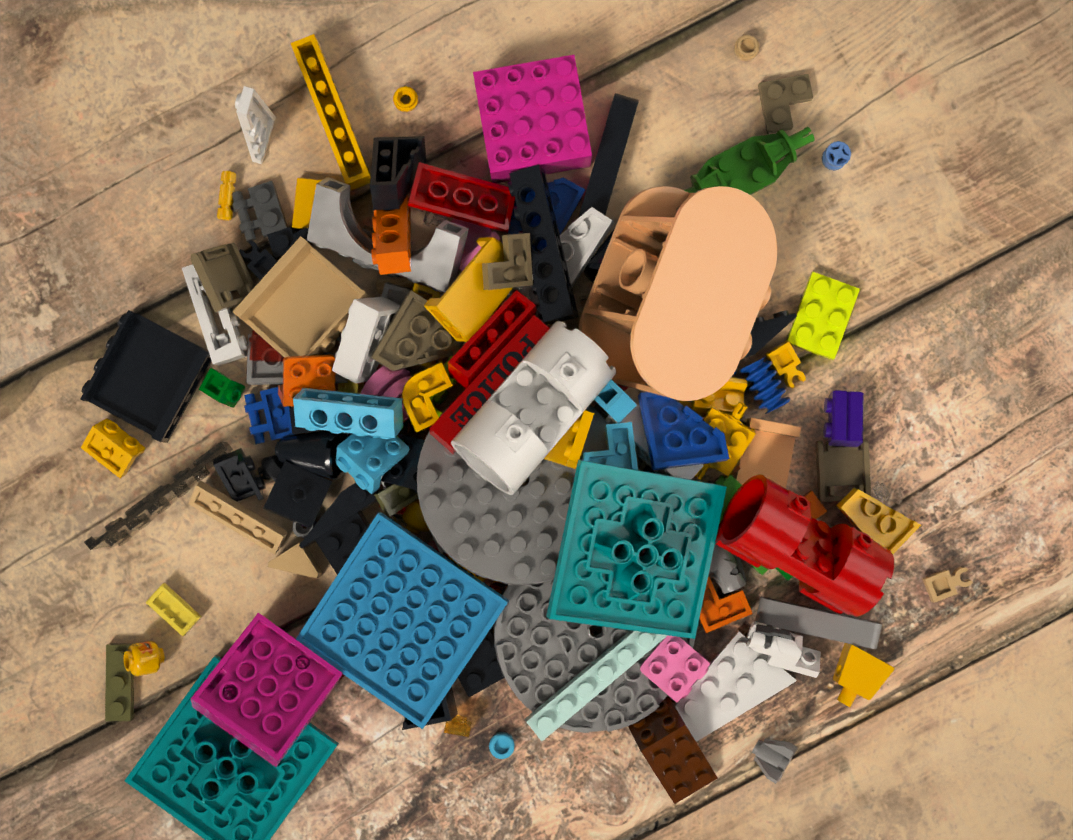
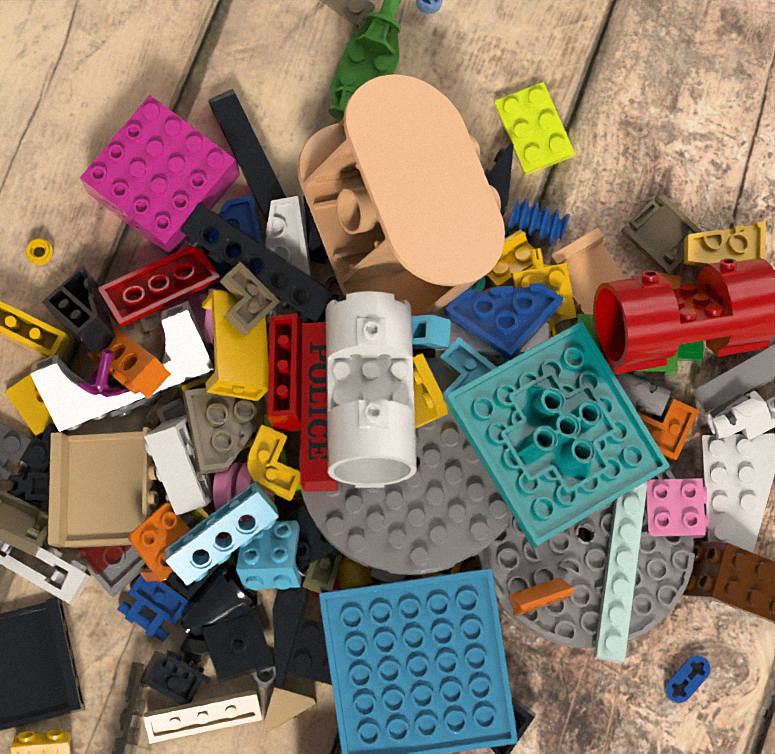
camera: 45 degrees left, 10 degrees down
(222, 388) = (92, 619): green bracket -> none
(361, 231) = (99, 379): none -> magenta plant
(458, 726) = (545, 722): clear yellow plate -> none
(482, 668) = (523, 655): black plate -> none
(501, 745) = (597, 707): medium azure tile -> none
(525, 648) = (540, 595): none -> orange slope
(579, 787) = (692, 684): none -> blue beam
(784, 362) = (537, 189): yellow plate -> none
(844, 418) = (626, 191): dark purple brick -> none

